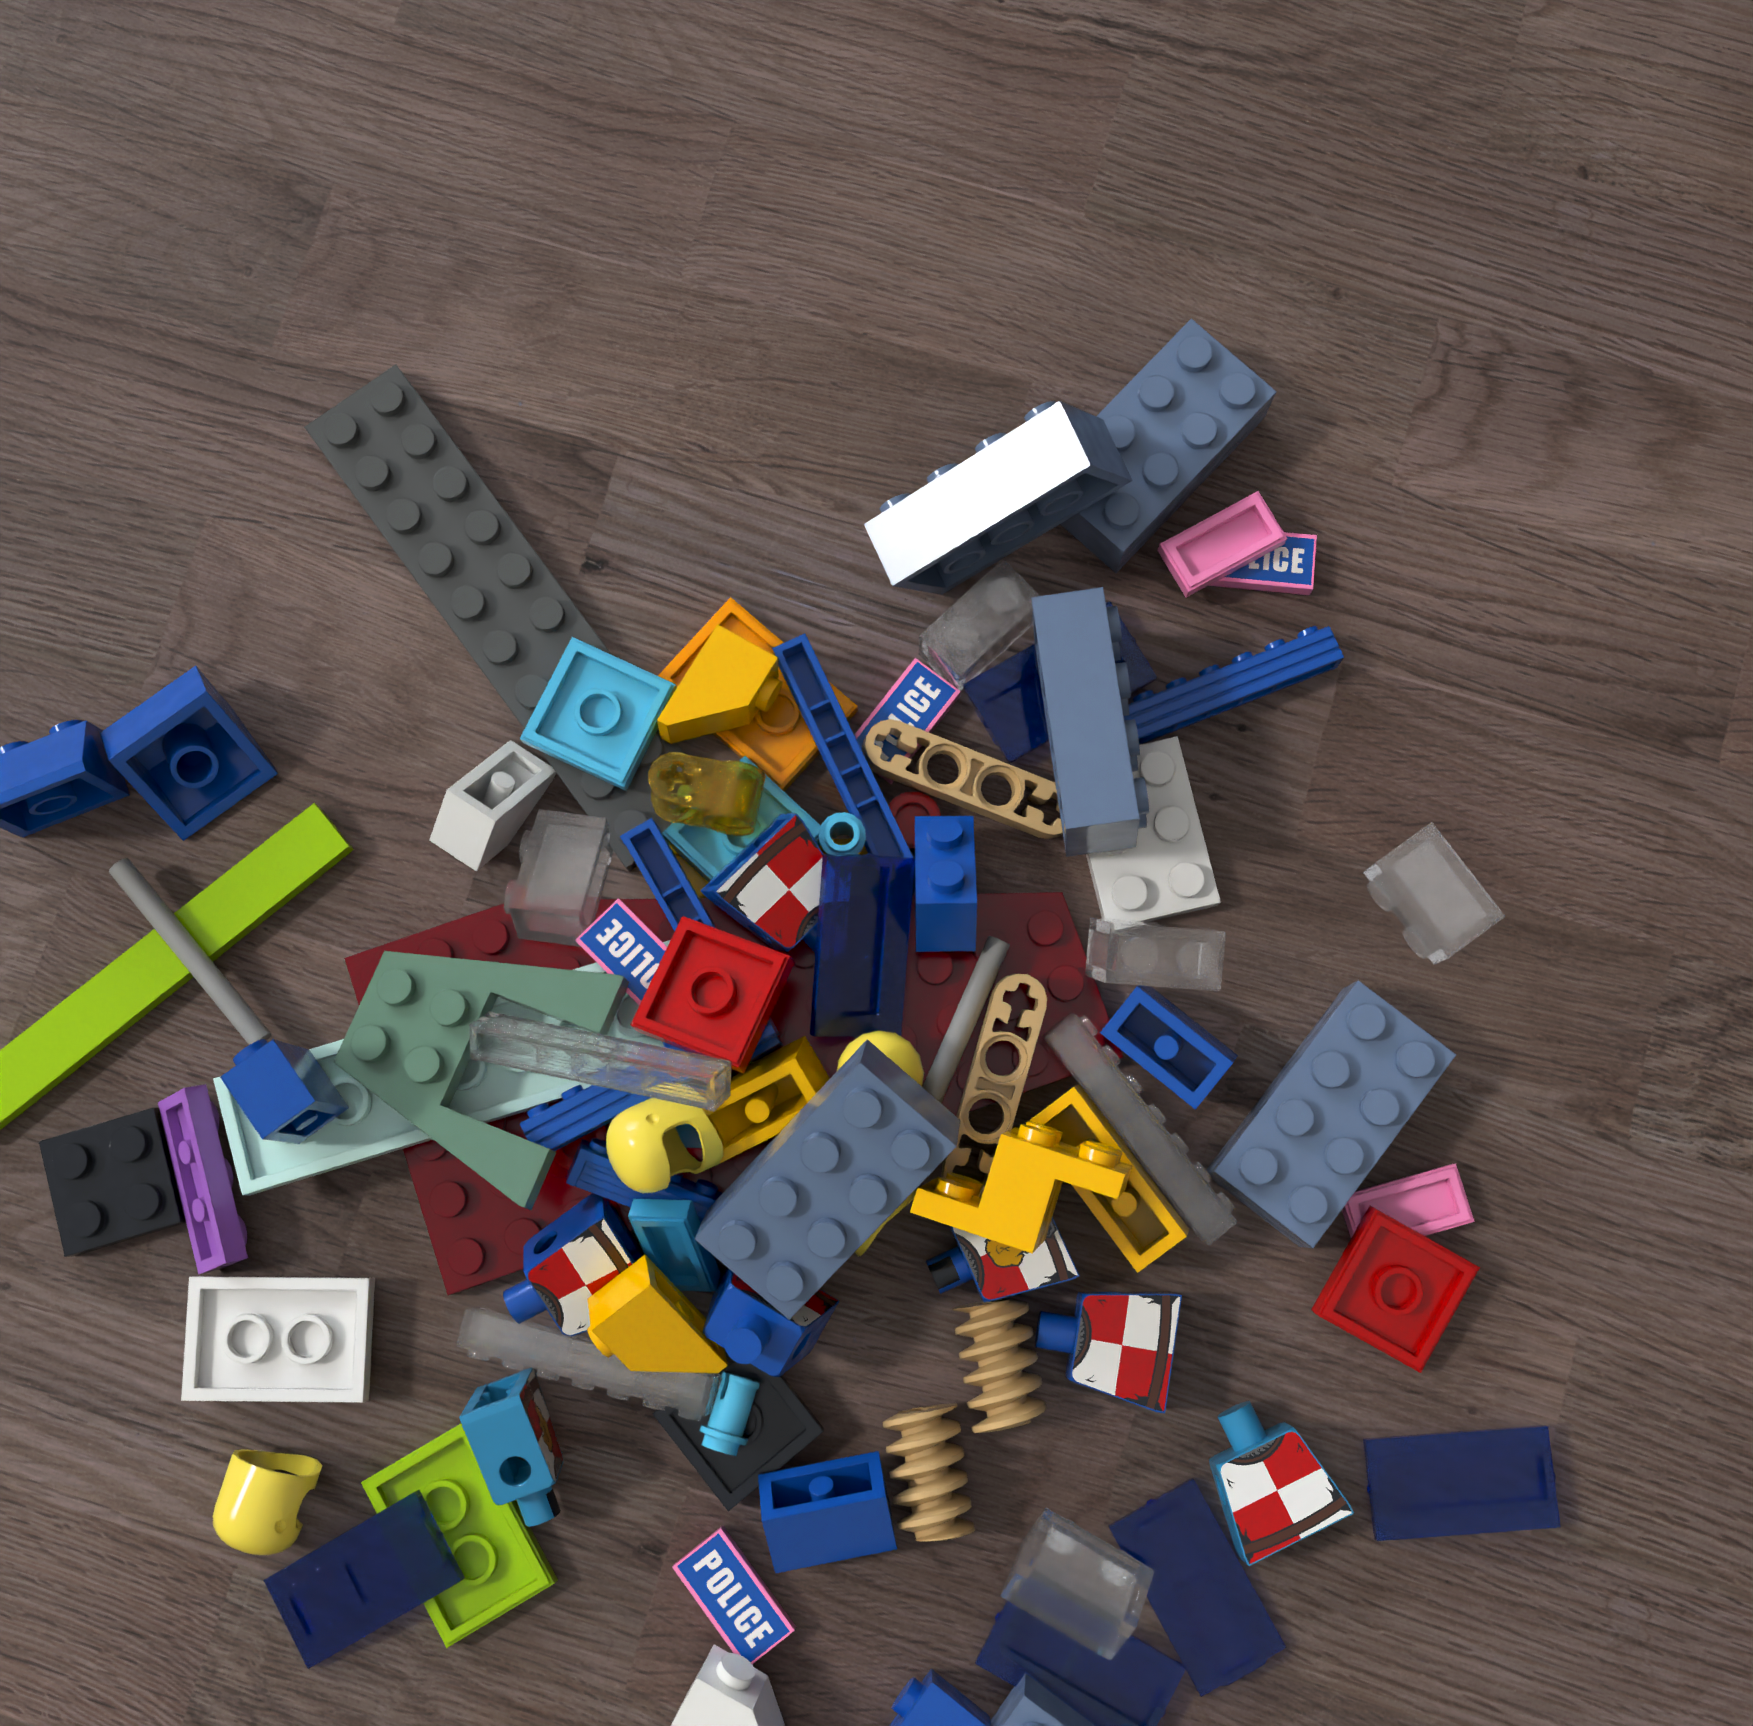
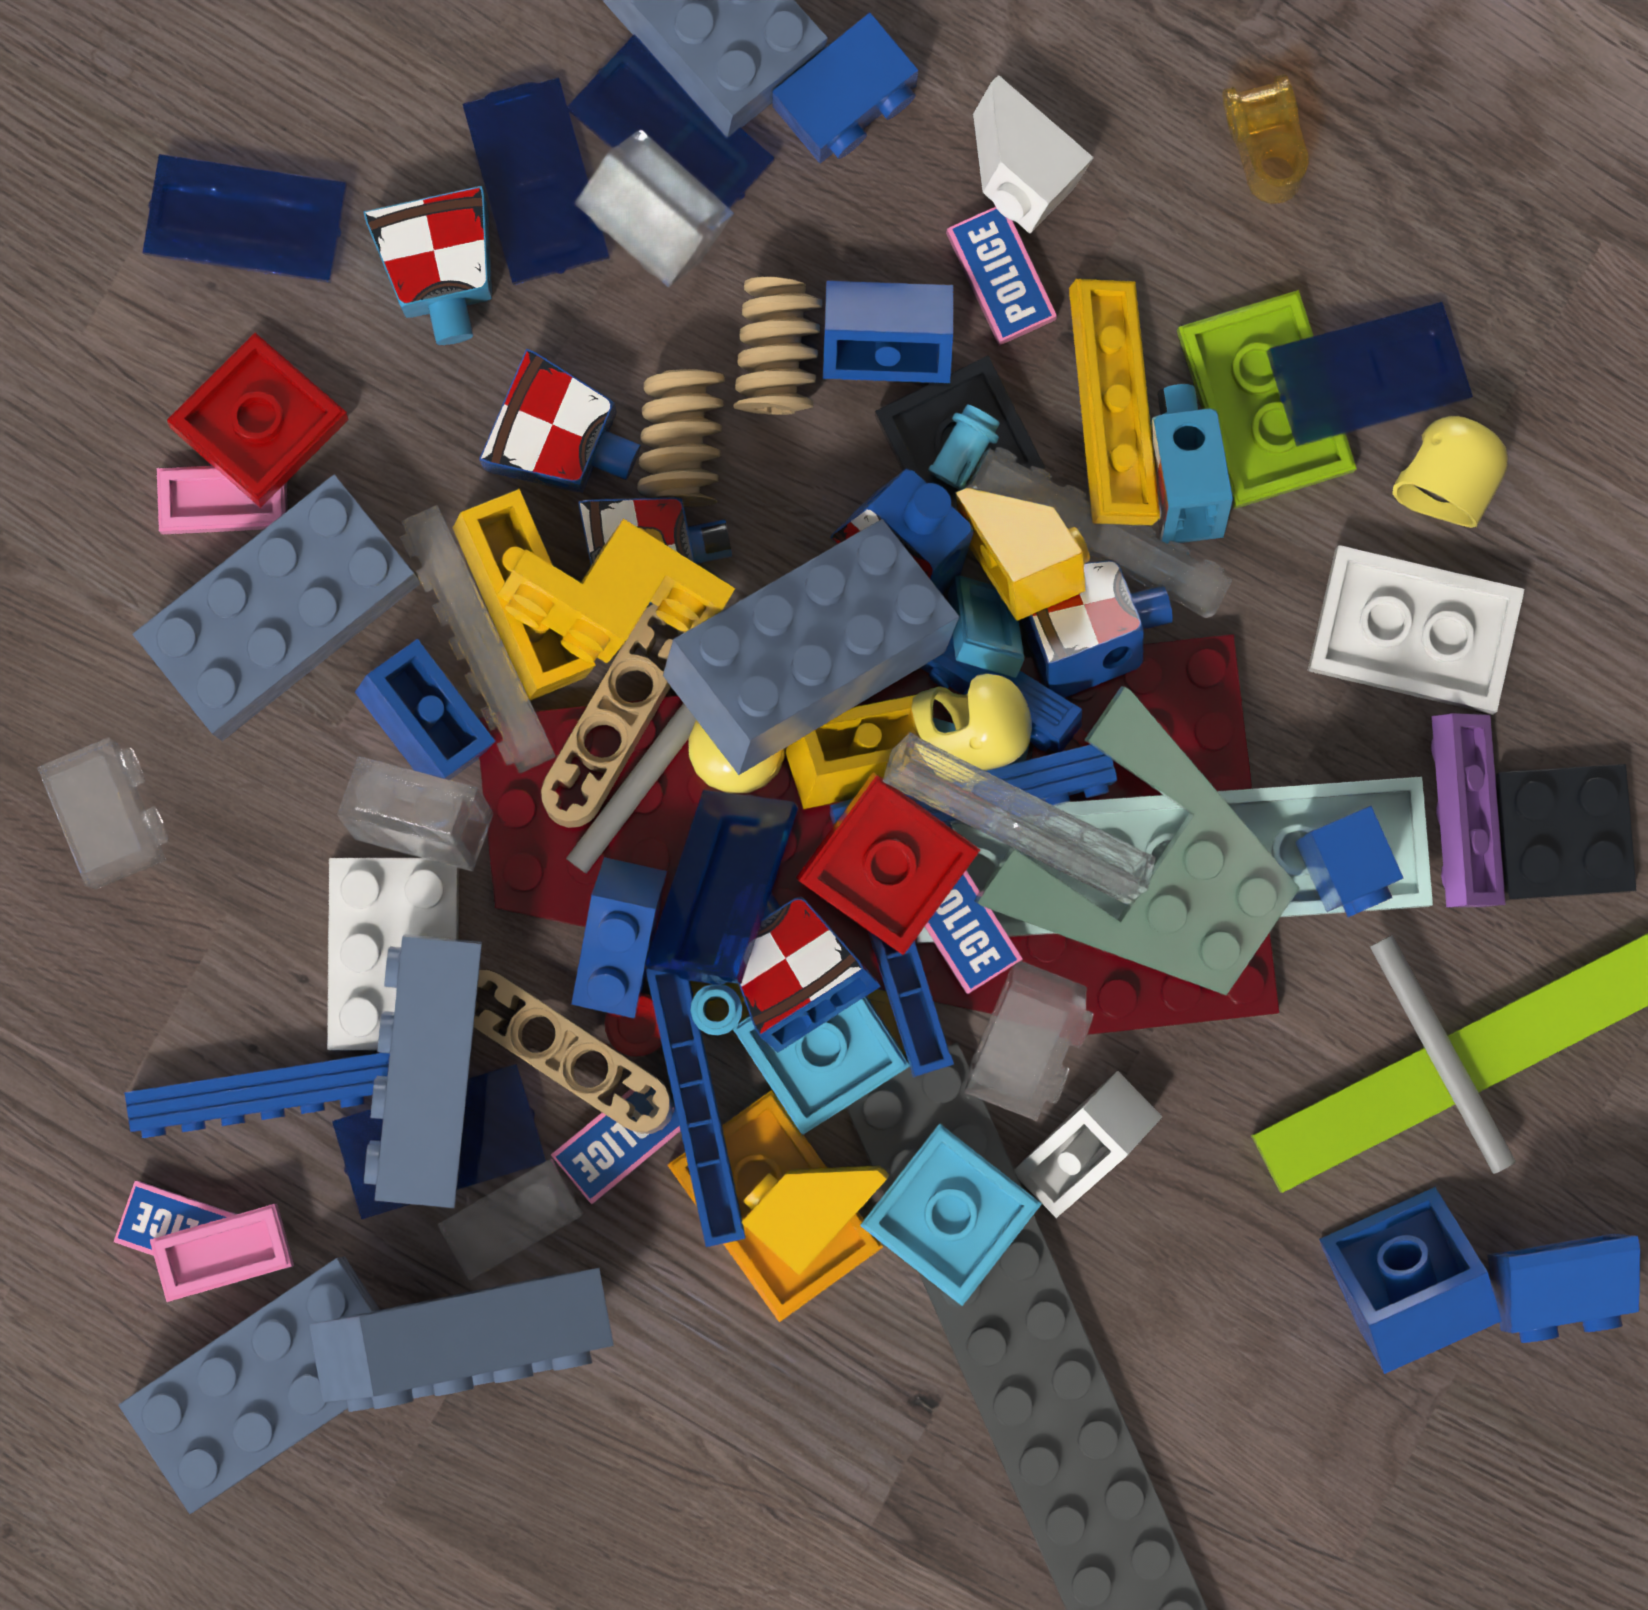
camera: 175 degrees left, 5 degrees up
(599, 1493) = (1114, 402): none -> yellow tile
(713, 792) = (836, 1085): clear yellow piece -> none

